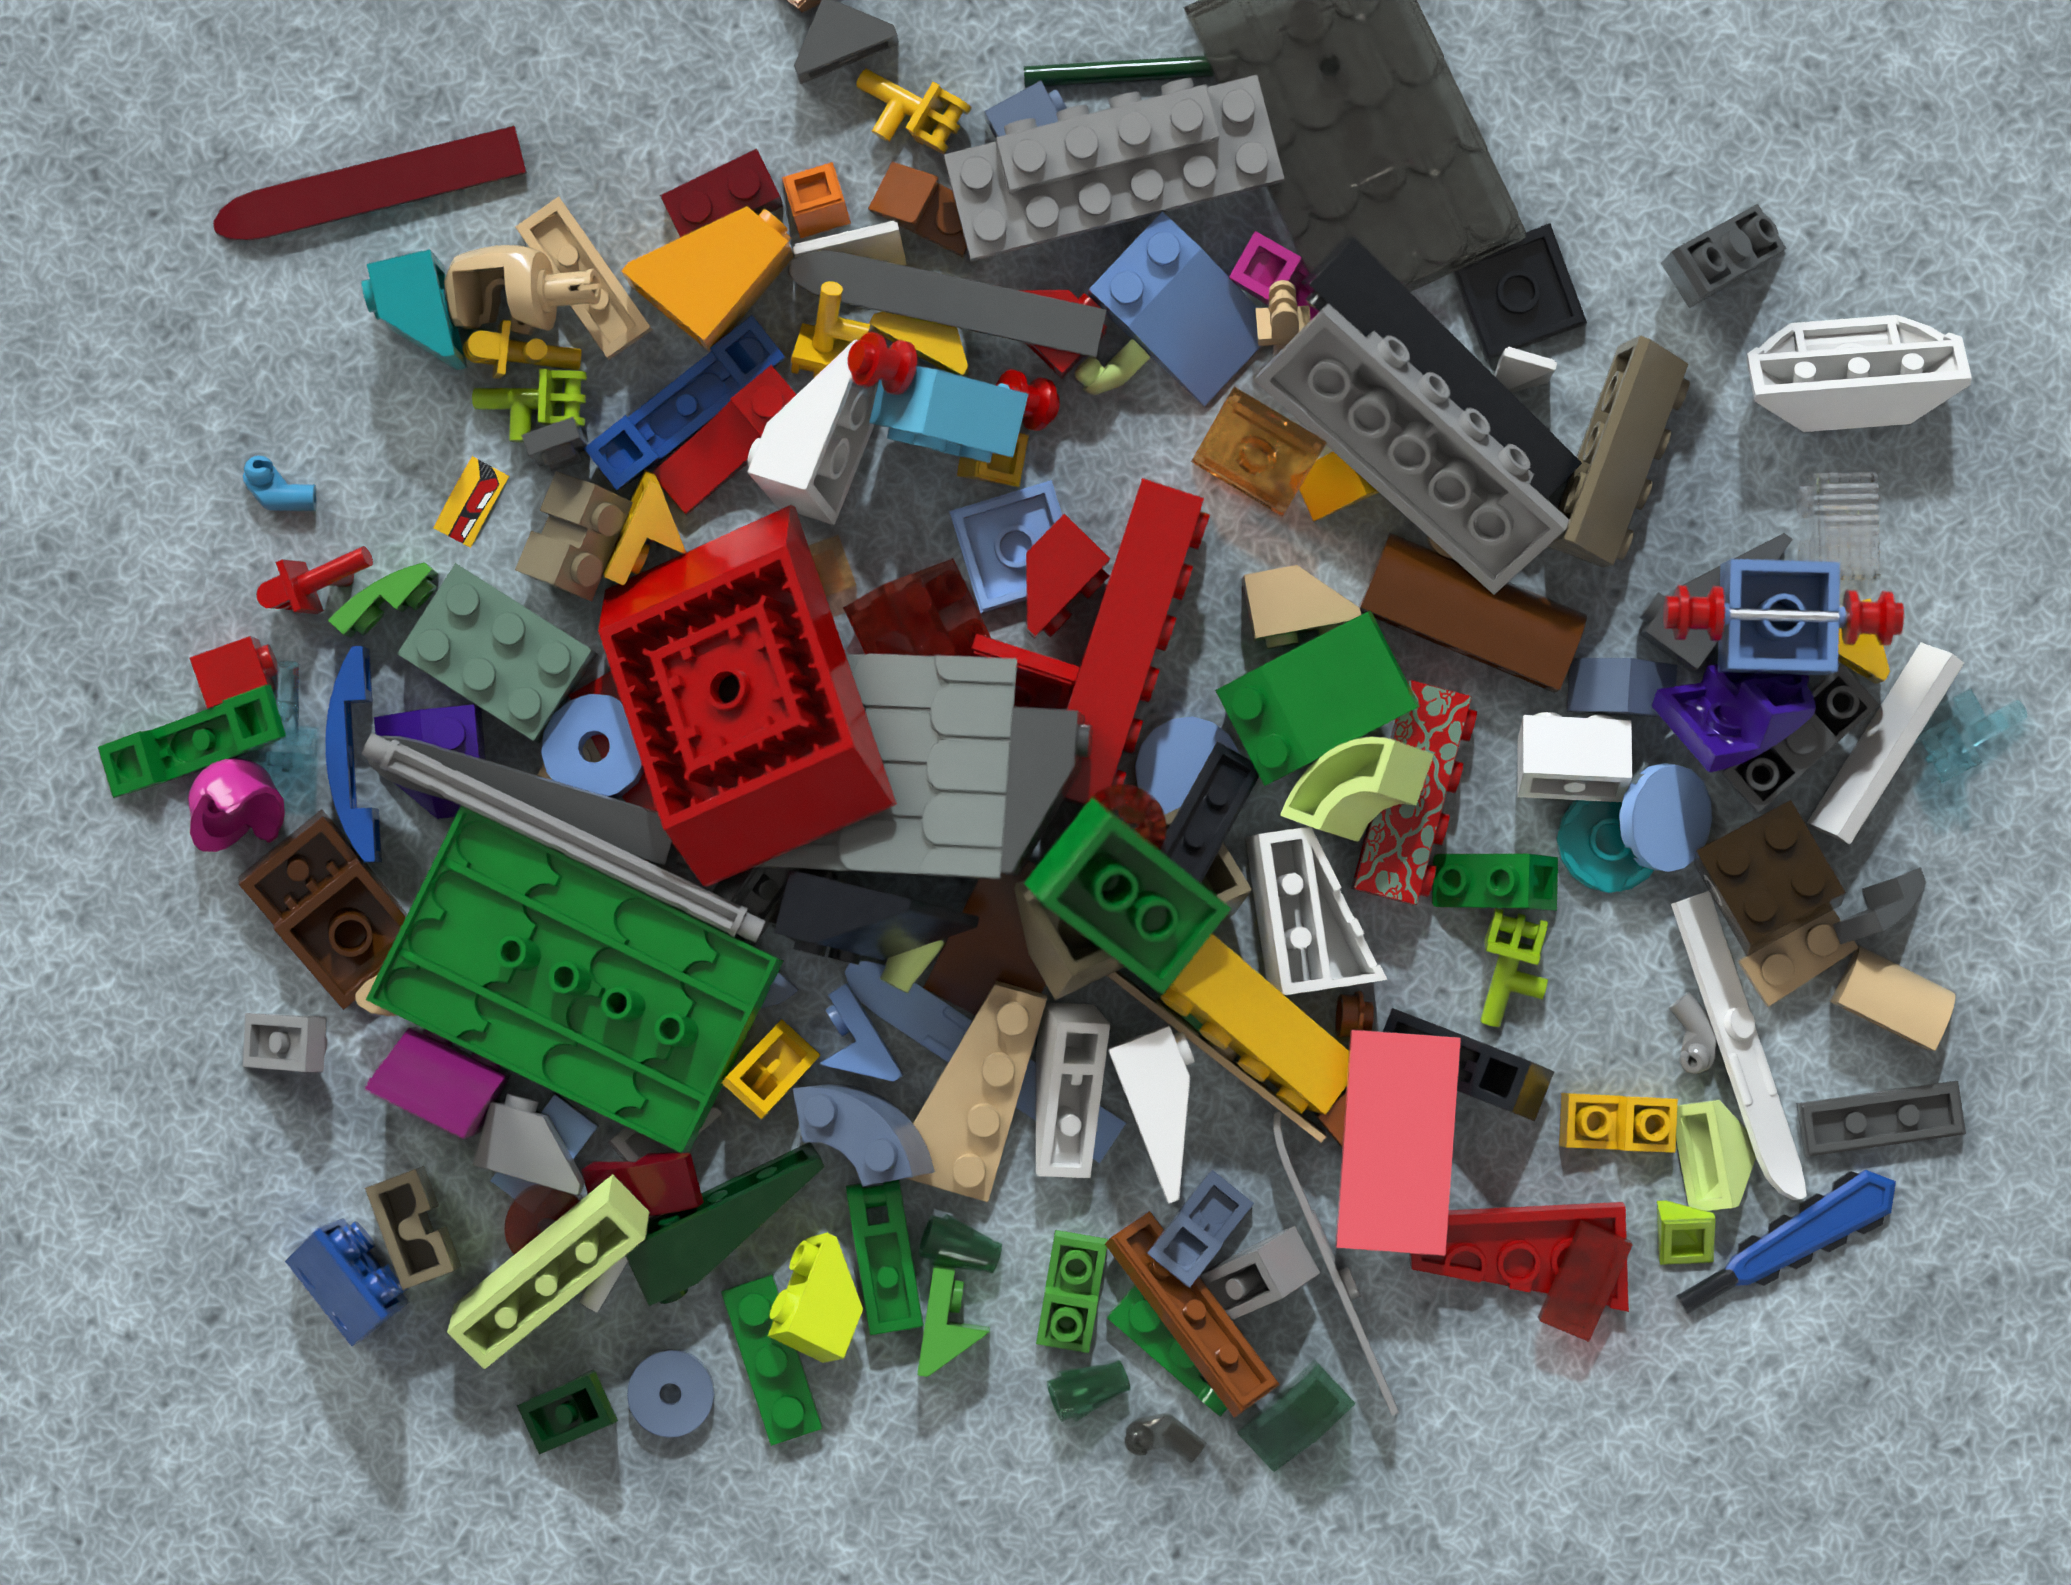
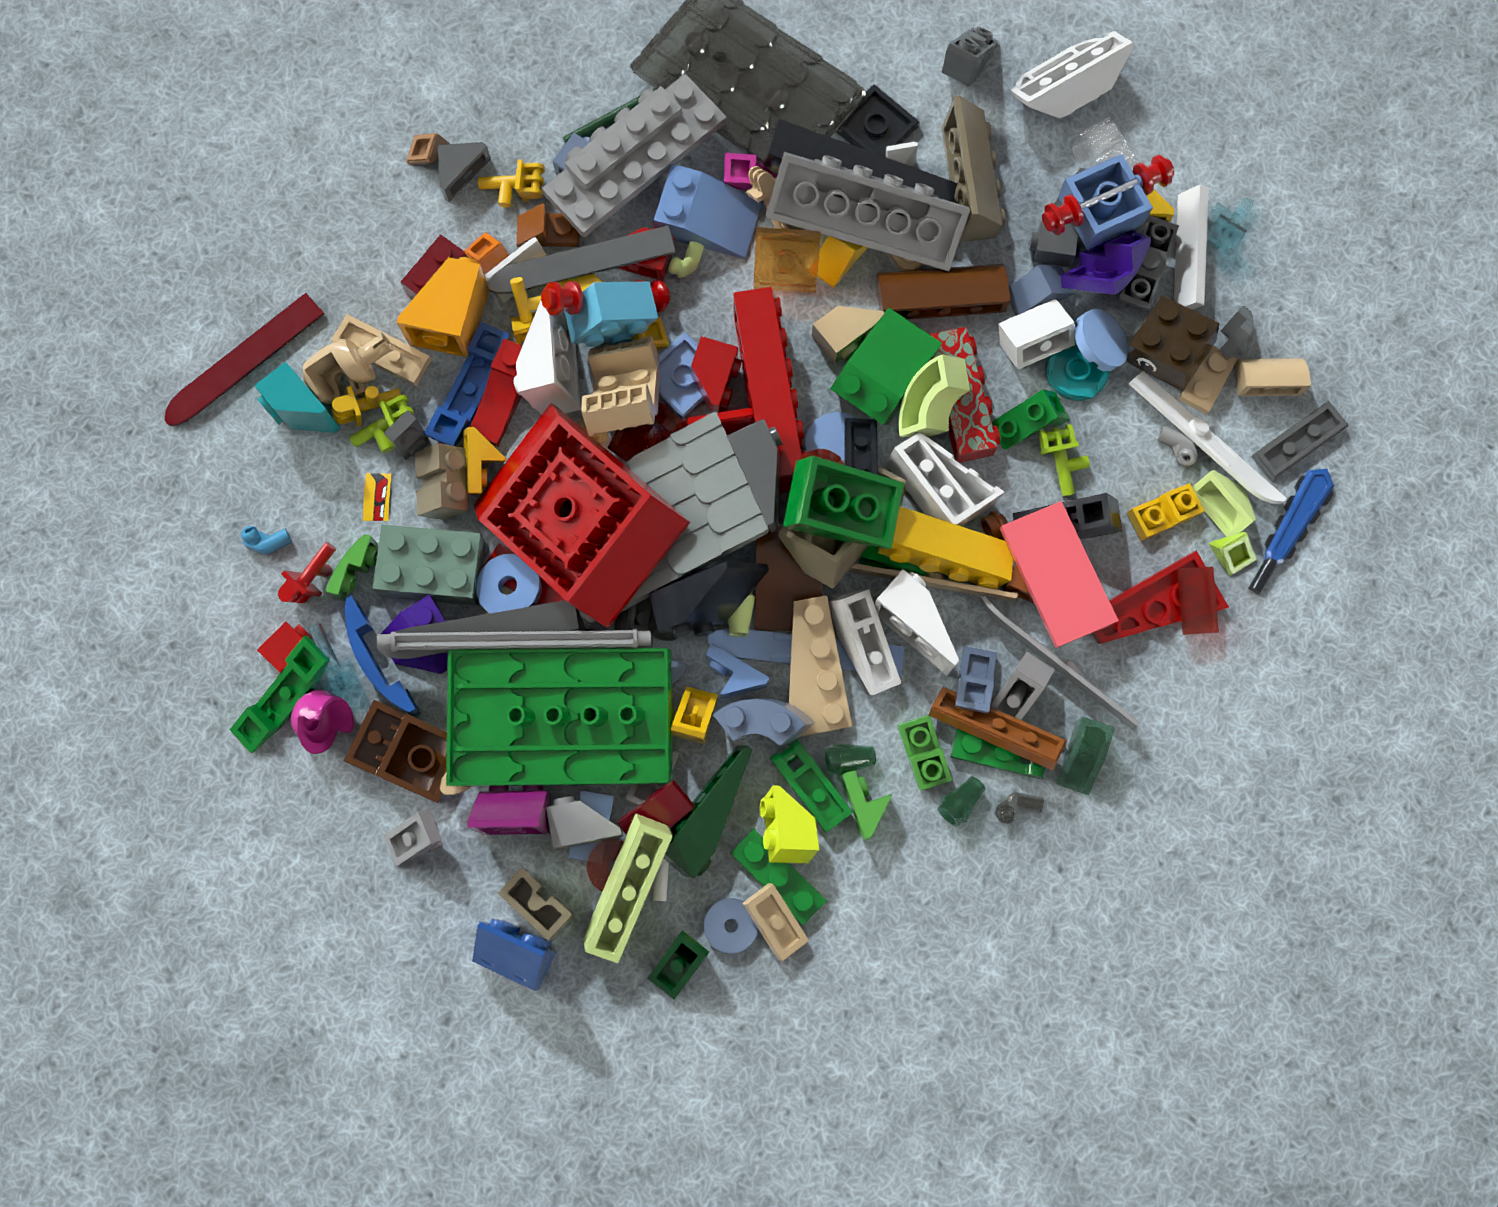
camera: 25 degrees left, 10 degrees down
(734, 1422) = (775, 921): none -> tan plate
(907, 537) = (623, 386): none -> tan plate

